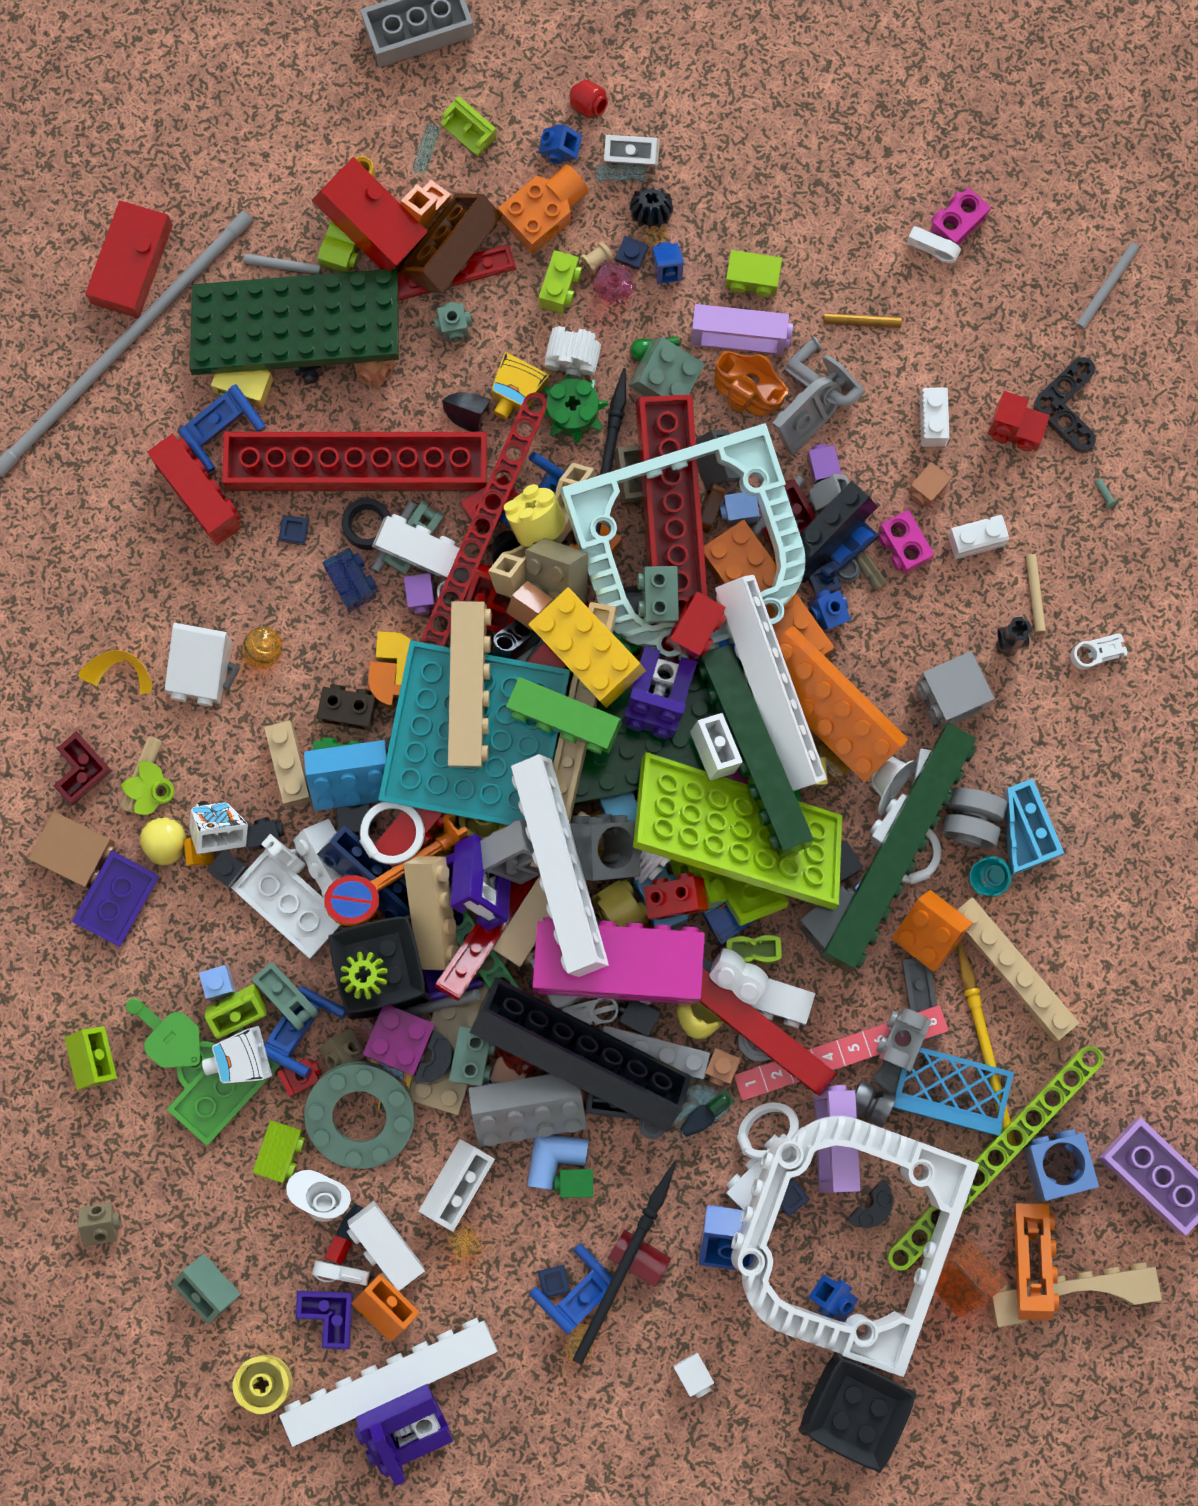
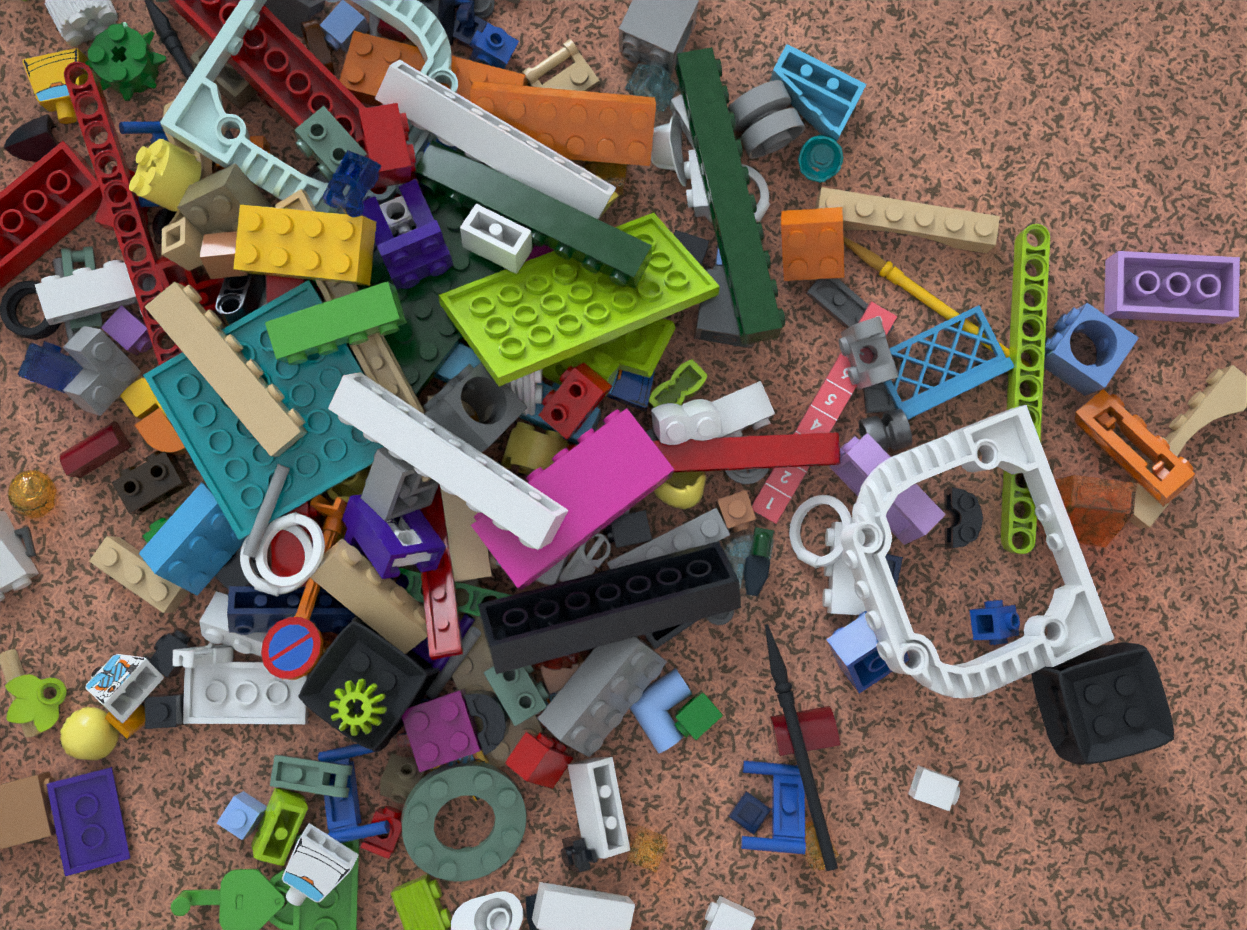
camera: 40 degrees left, 5 degrees up
(328, 654) = (94, 451): none -> dark red brick
(381, 609) = (105, 370): none -> light grey brick
(412, 796) = (266, 510): none -> light grey bar
(413, 812) = (316, 558): none -> white piece
(414, 1204) = (576, 854): none -> black plate
(446, 1118) = (539, 759): none -> red brick
(659, 631) = (359, 175): none -> clear blue plate
(863, 676) = (575, 77): none -> tan plate
(916, 727) = (652, 82): none -> clear light blue brick

